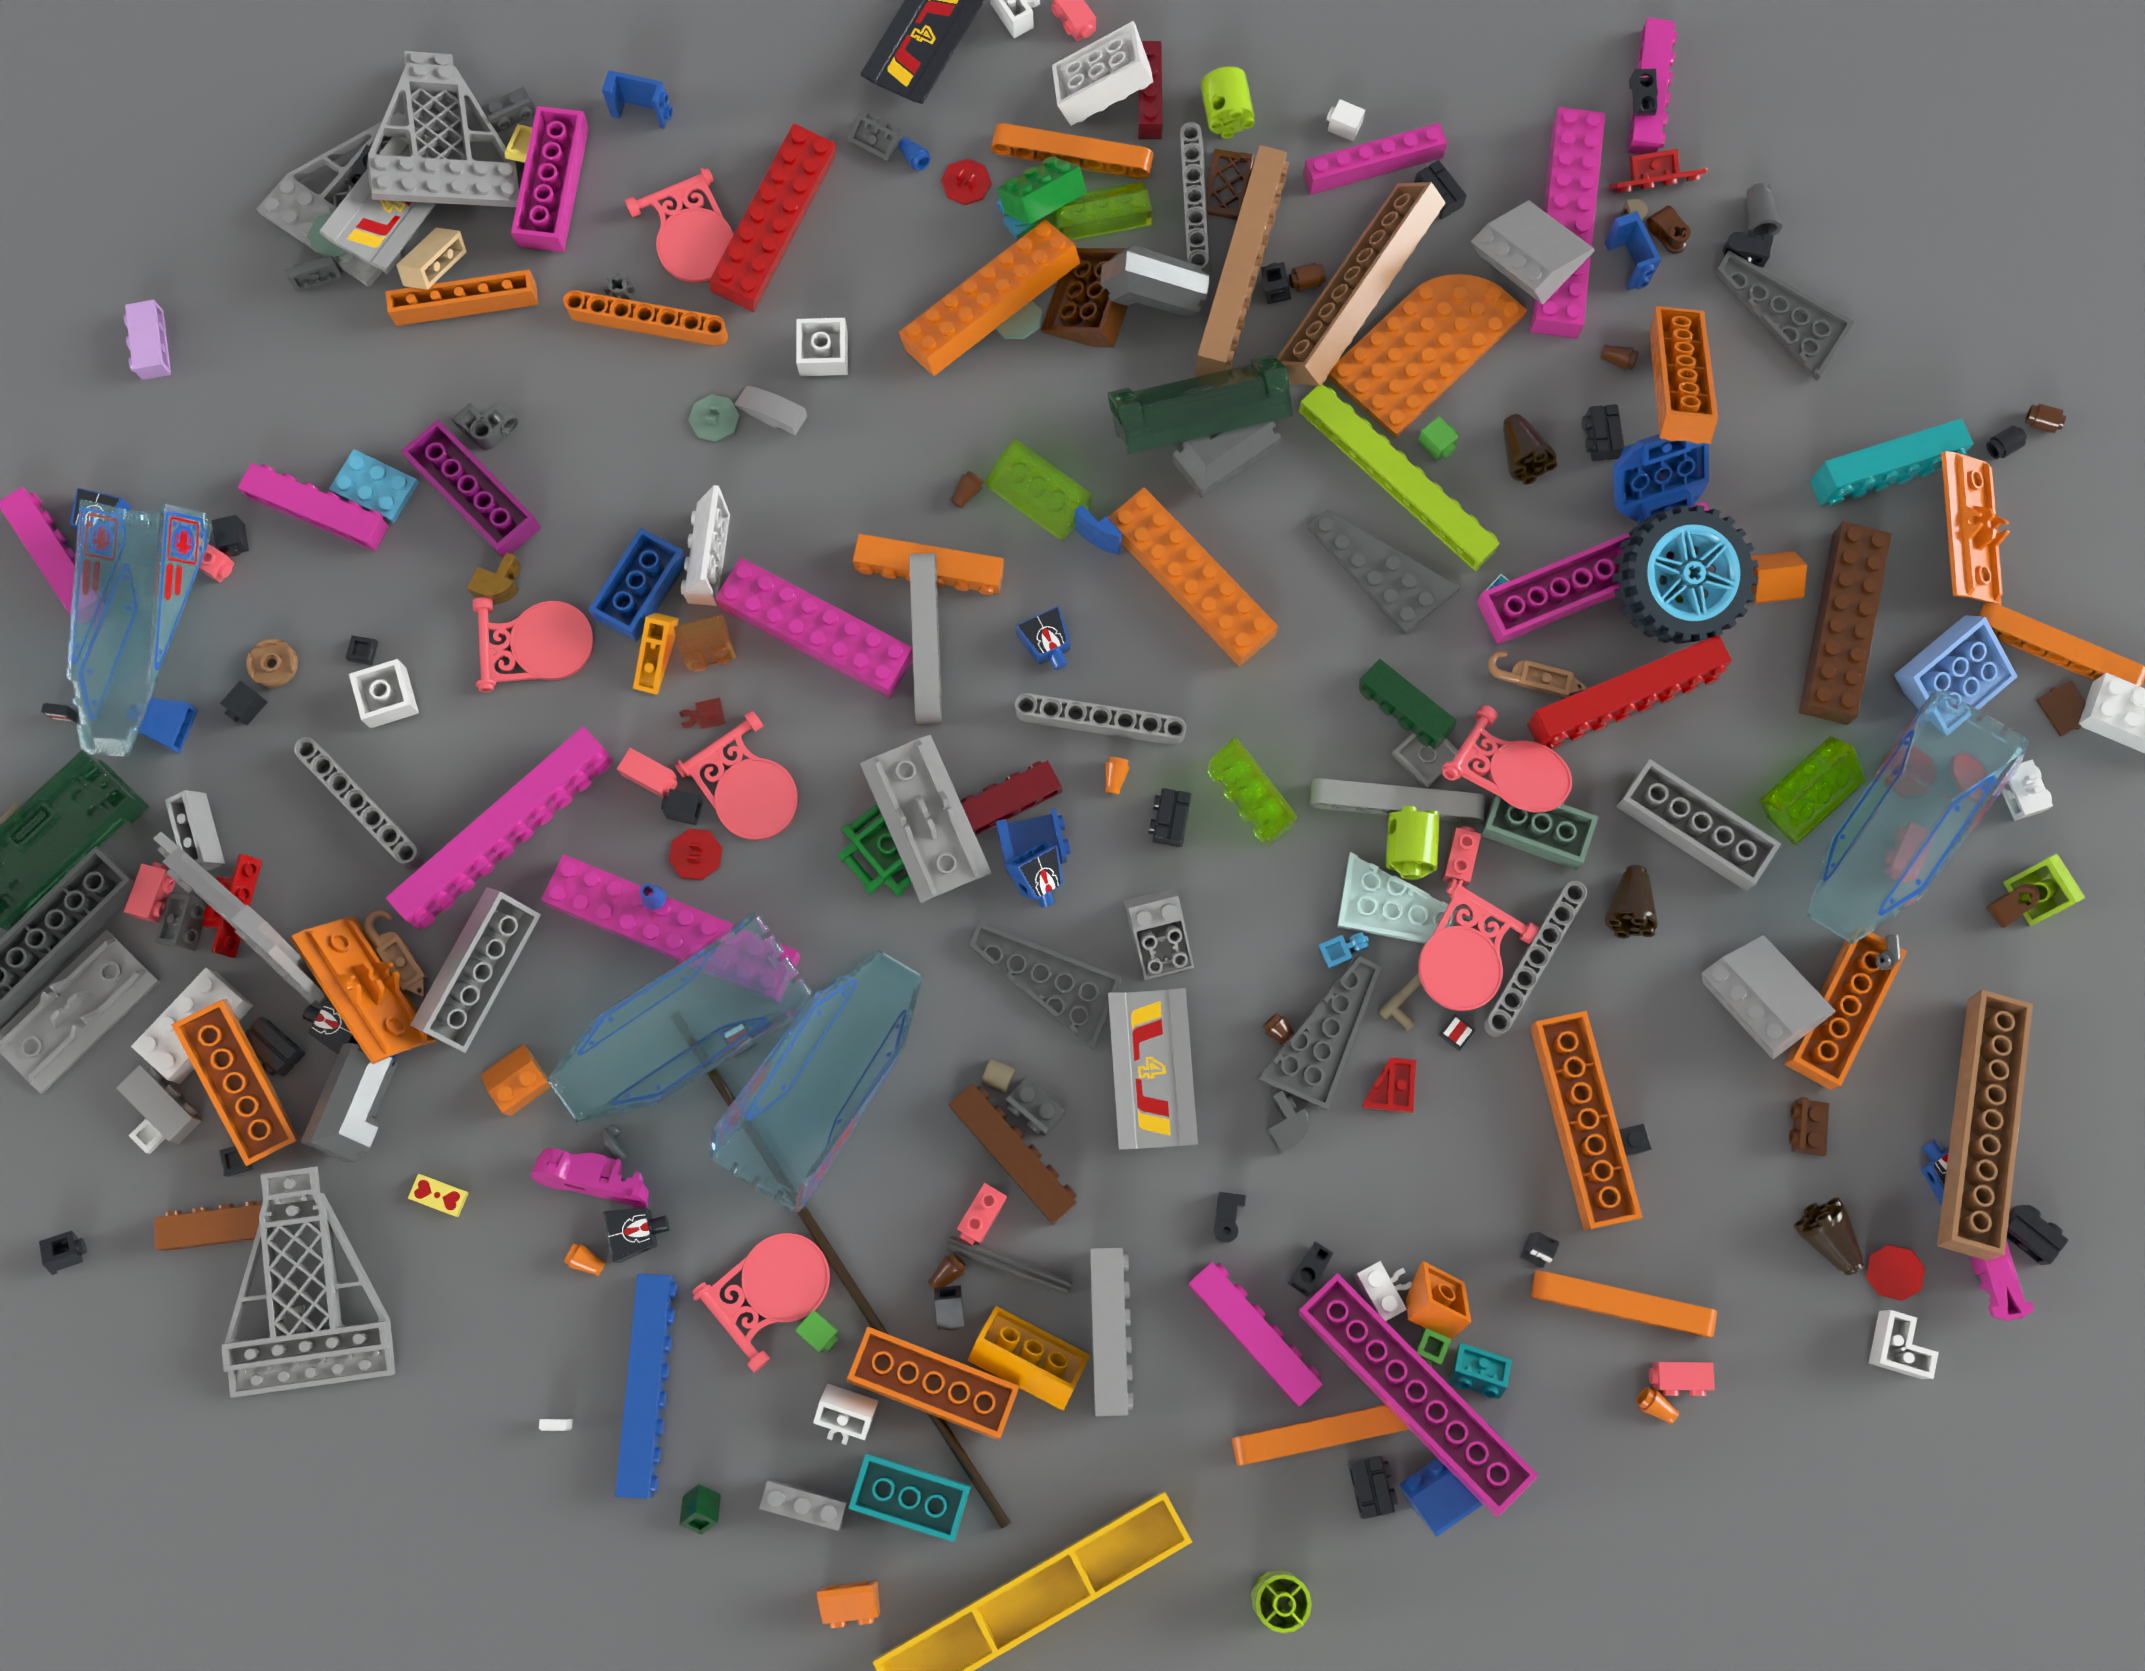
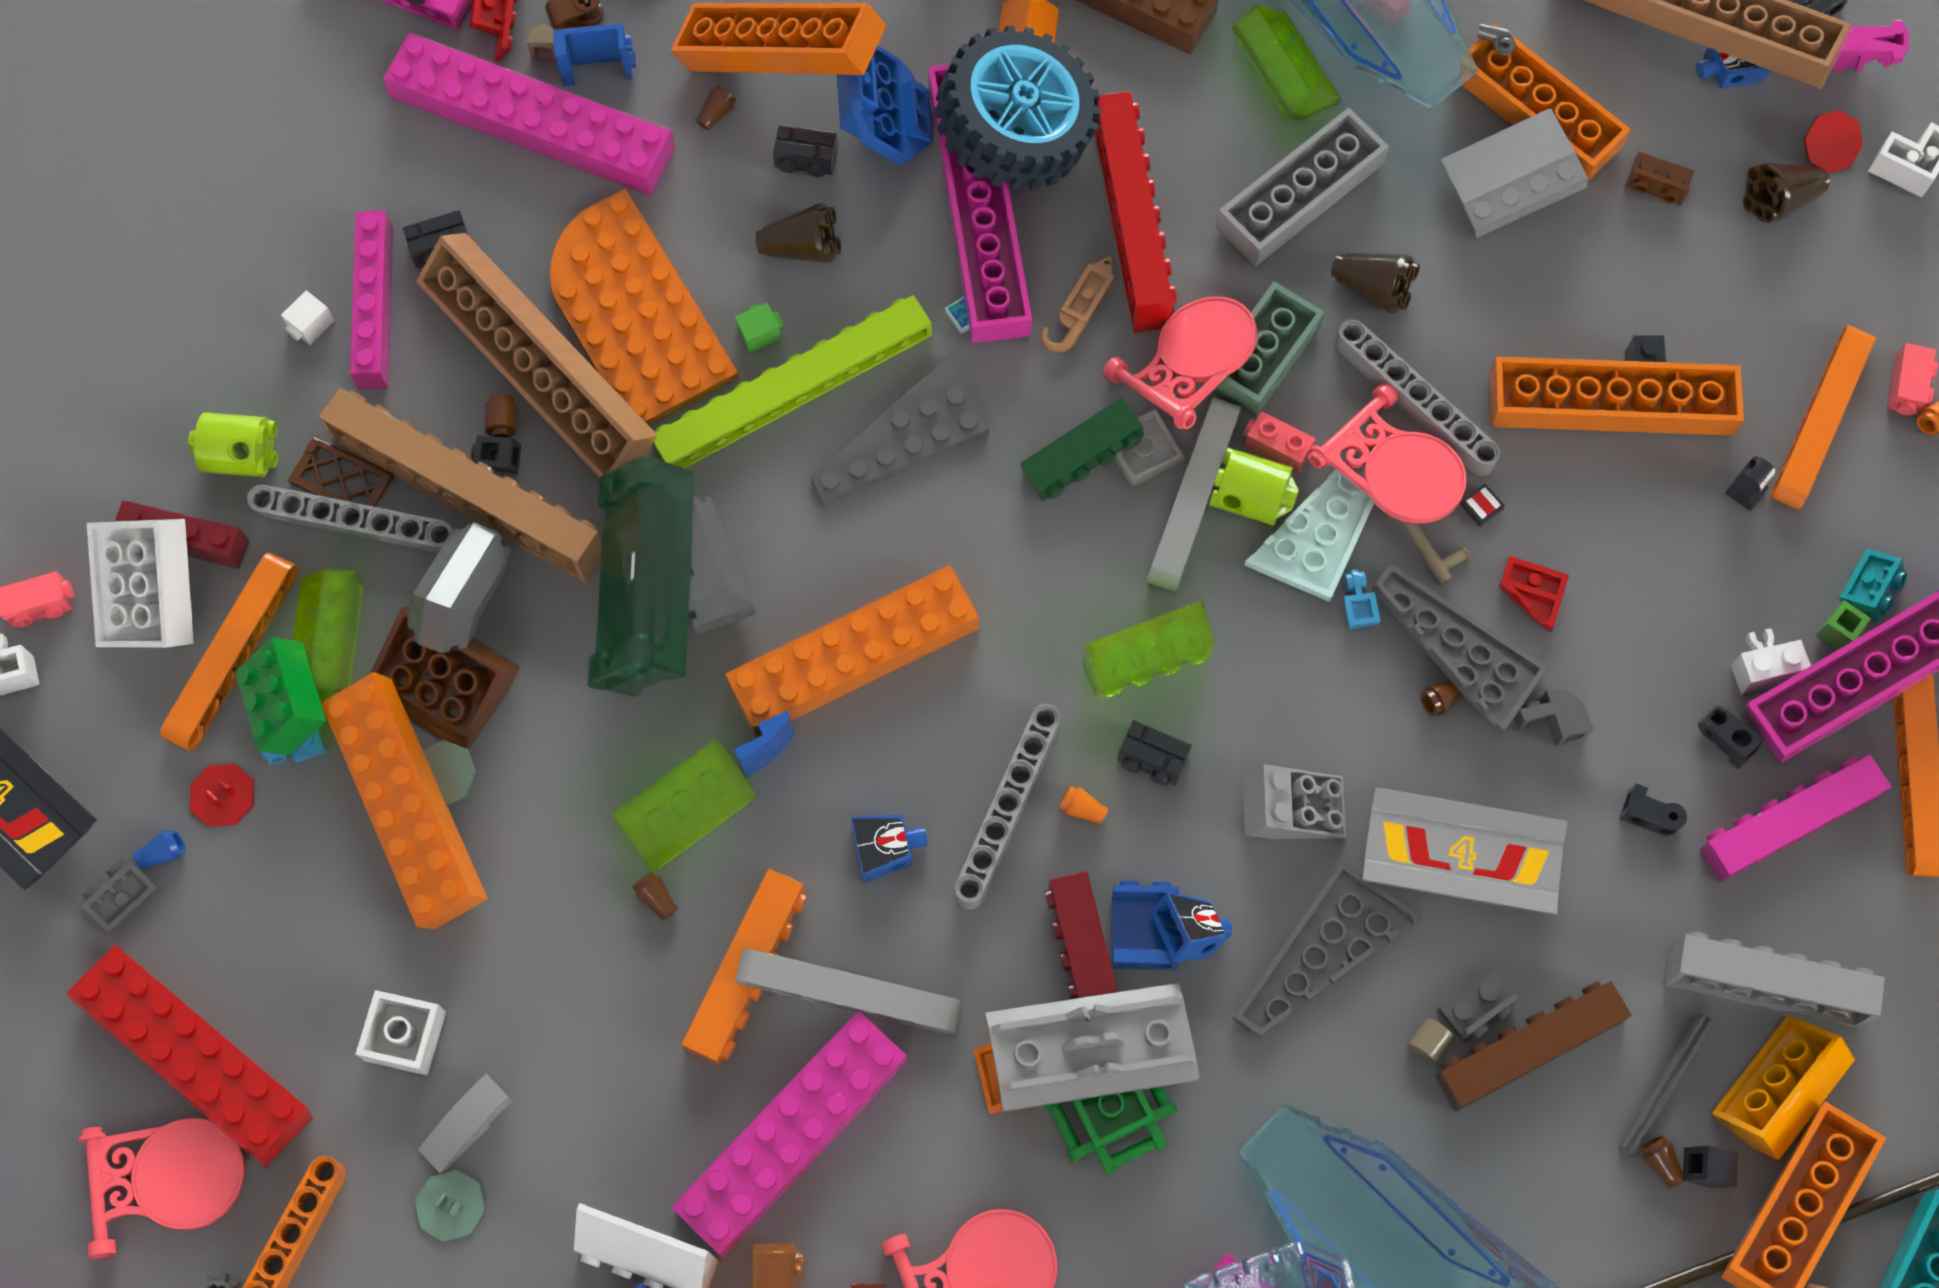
camera: 75 degrees left, 5 degrees down
(981, 1214) = (1601, 1101): coral brick -> none
(1438, 1301) = (1794, 605): orange slope -> none
(1532, 250) = (559, 156): light grey slope -> none

